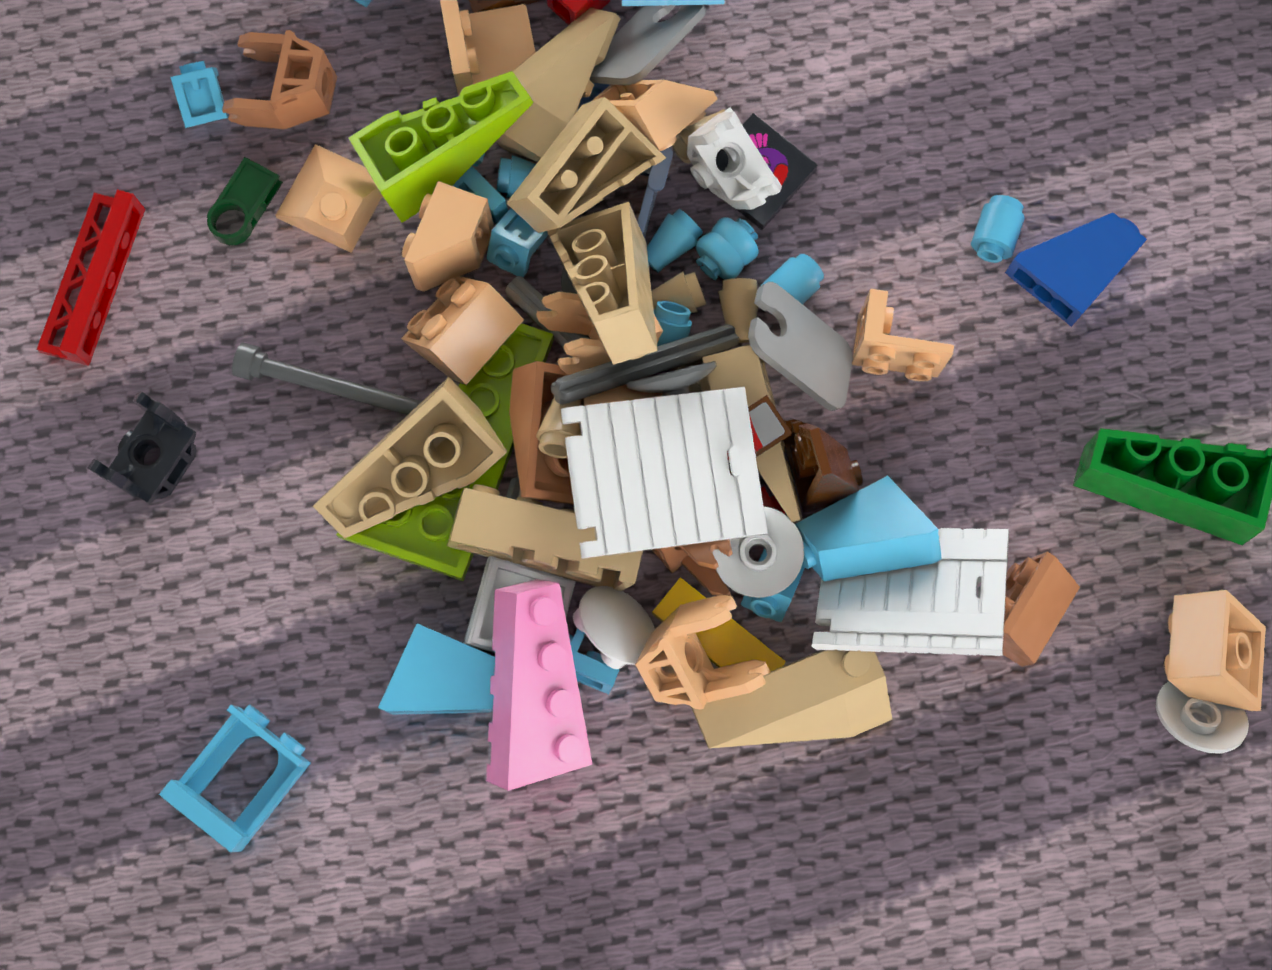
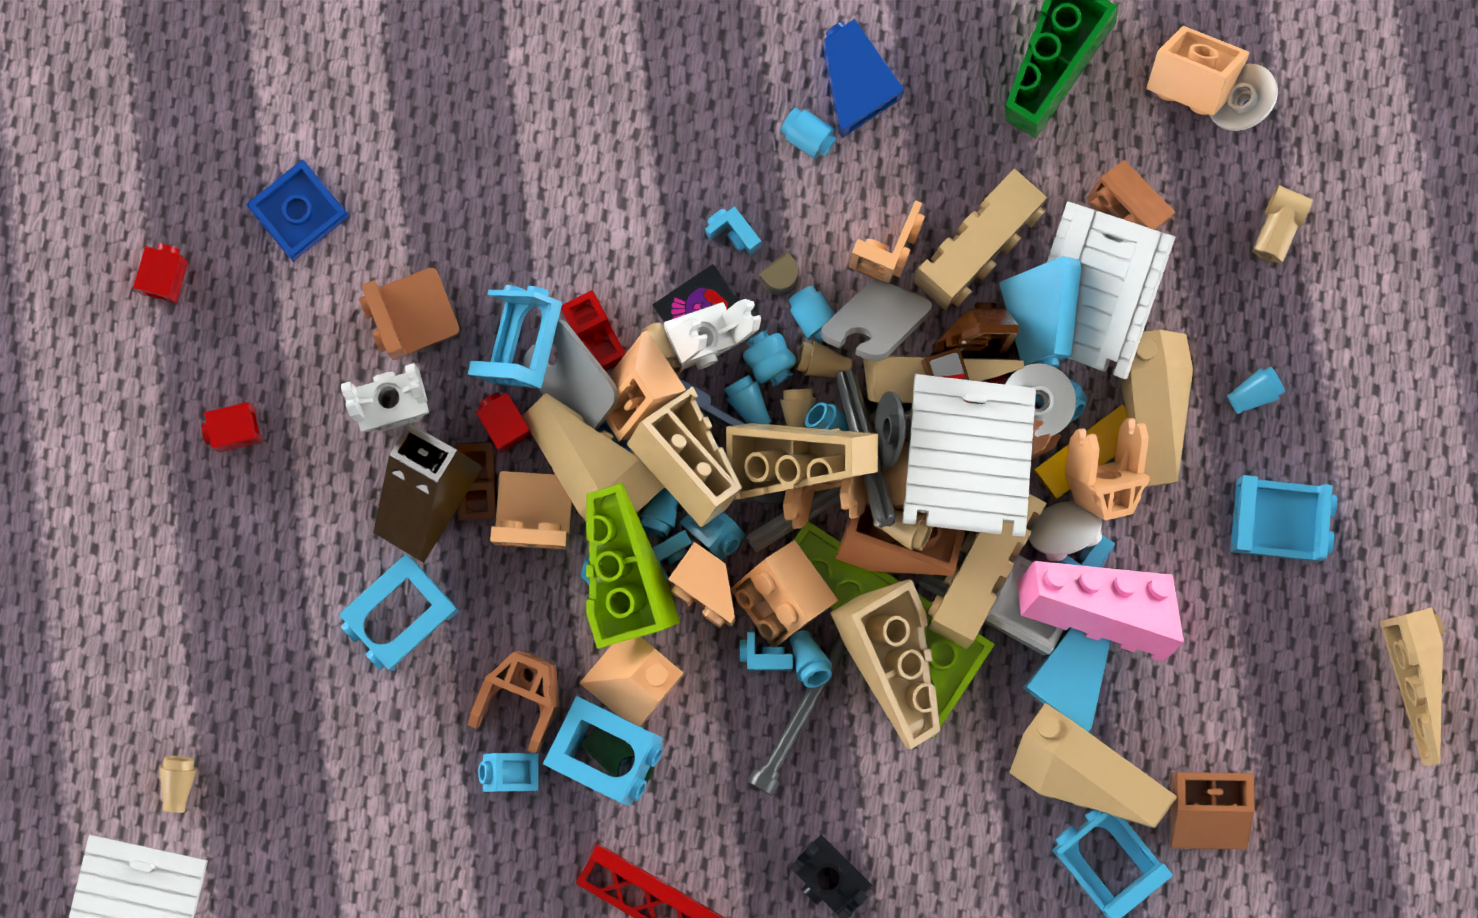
camera: 75 degrees left, 5 degrees up
(231, 140) = (570, 736): none -> medium azure panel
(324, 881) = (1211, 810): none -> nougat slope
(332, 719) = (1076, 767): none -> tan wedge
(385, 334) = (770, 660): none -> medium azure bracket
(391, 375) = (810, 662): none -> medium azure cone
(698, 890) = (1282, 519): none -> medium azure panel
(709, 59) = (594, 330): none -> red slope
(826, 238) = (780, 275): none -> dark tan brick
(846, 819) = (1256, 391): none -> medium azure cone
(864, 178) = (740, 233): none -> medium azure bracket
(932, 447) = (981, 240): none -> tan wedge
(1073, 802) = (1284, 216): none -> tan piece

